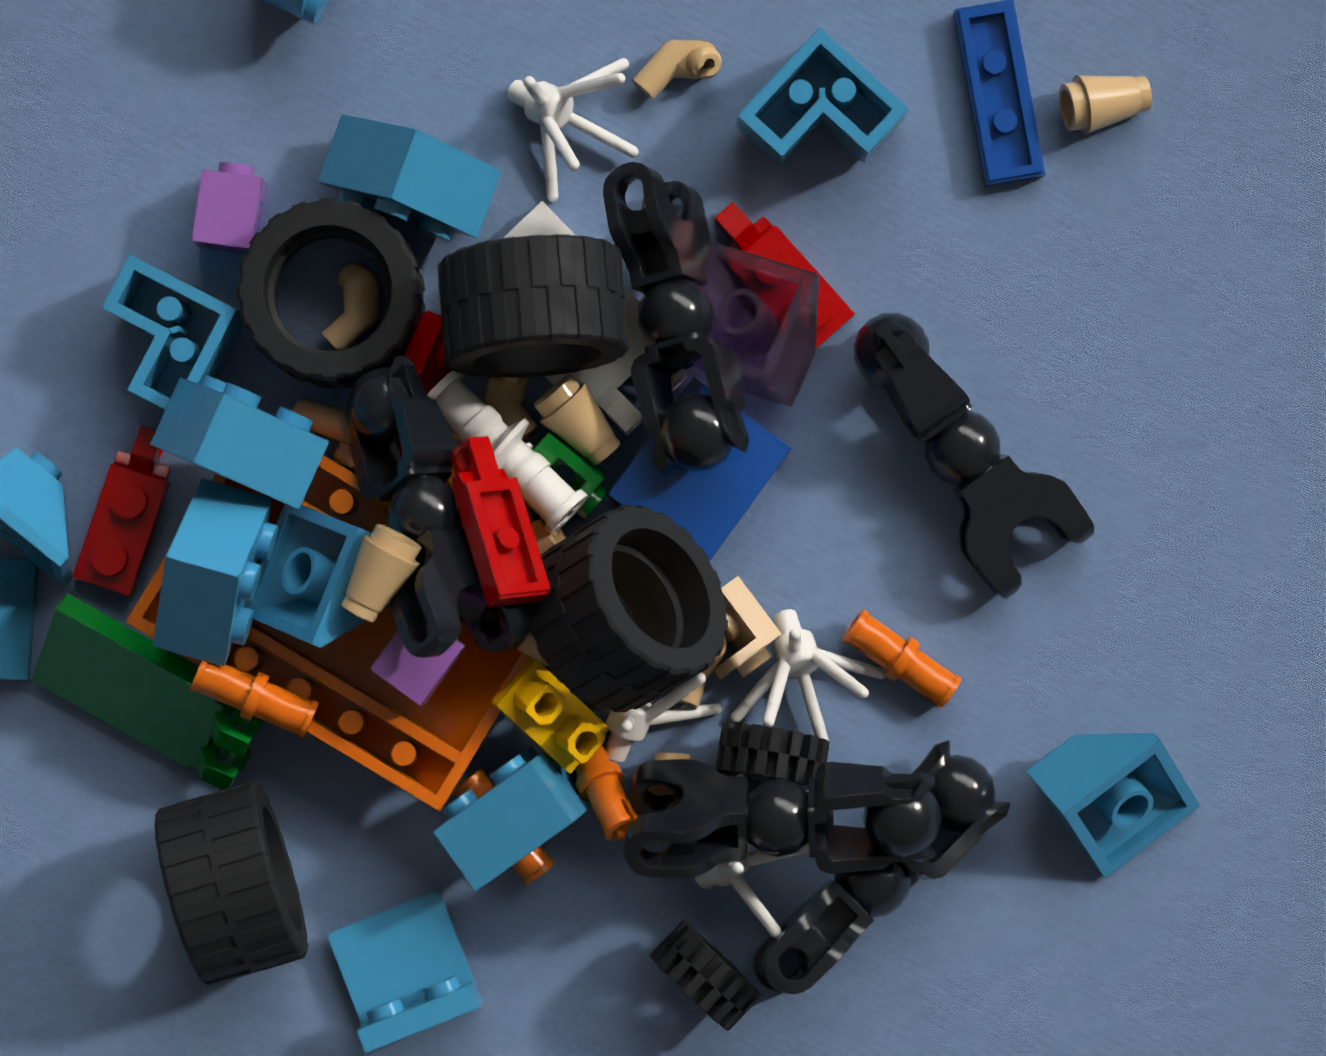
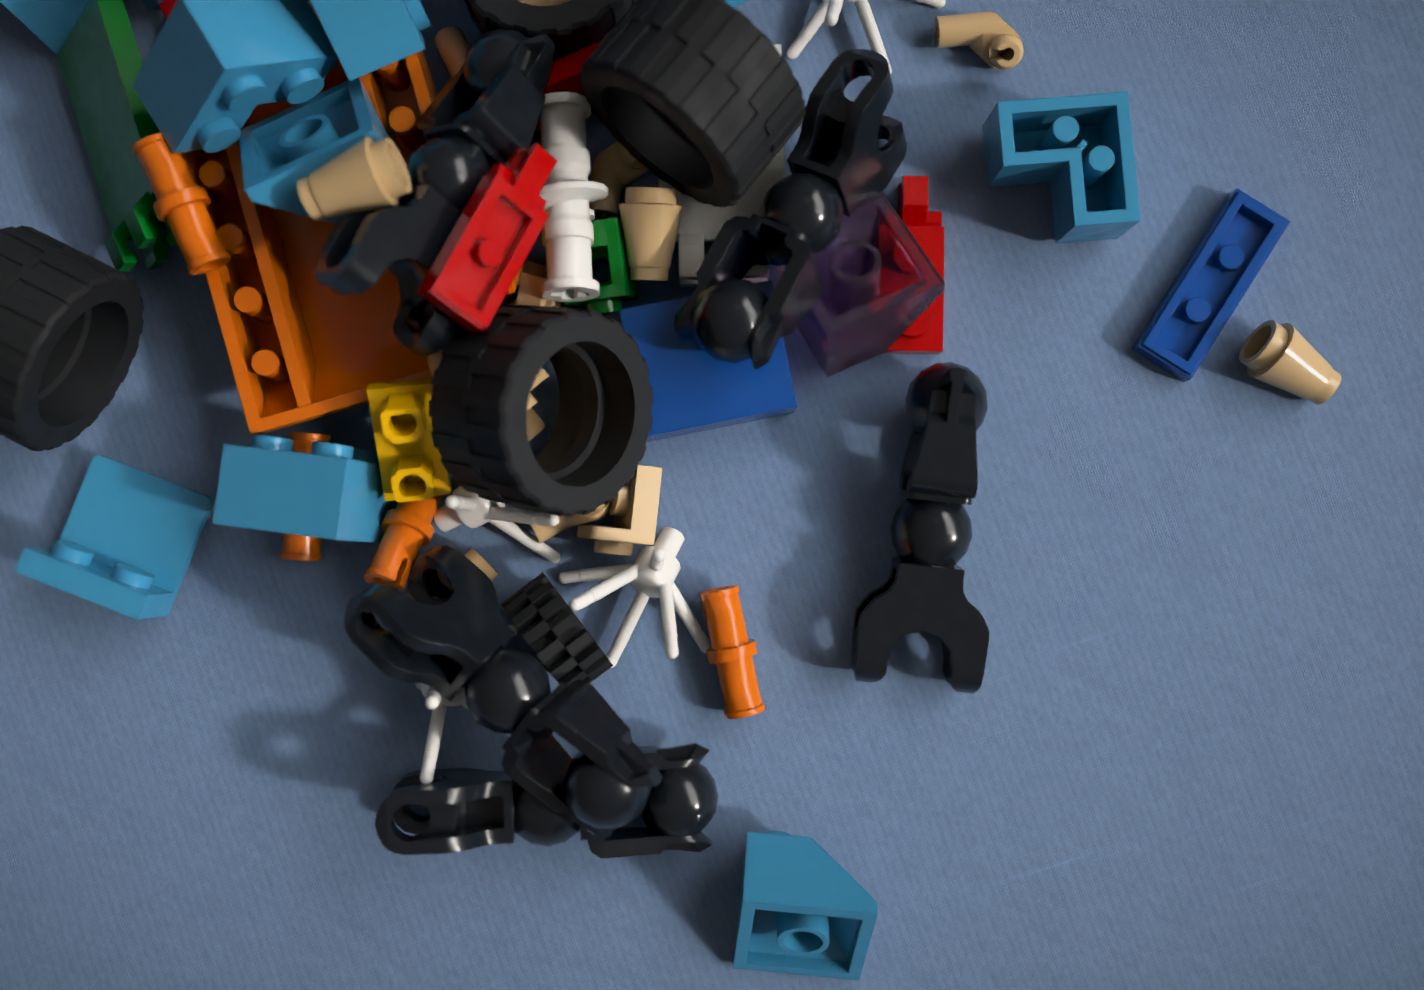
camera: 50 degrees right, 0 degrees up
(415, 675) = (325, 314): medium lavender brick -> none
(705, 975) = (344, 759): black tyre -> none

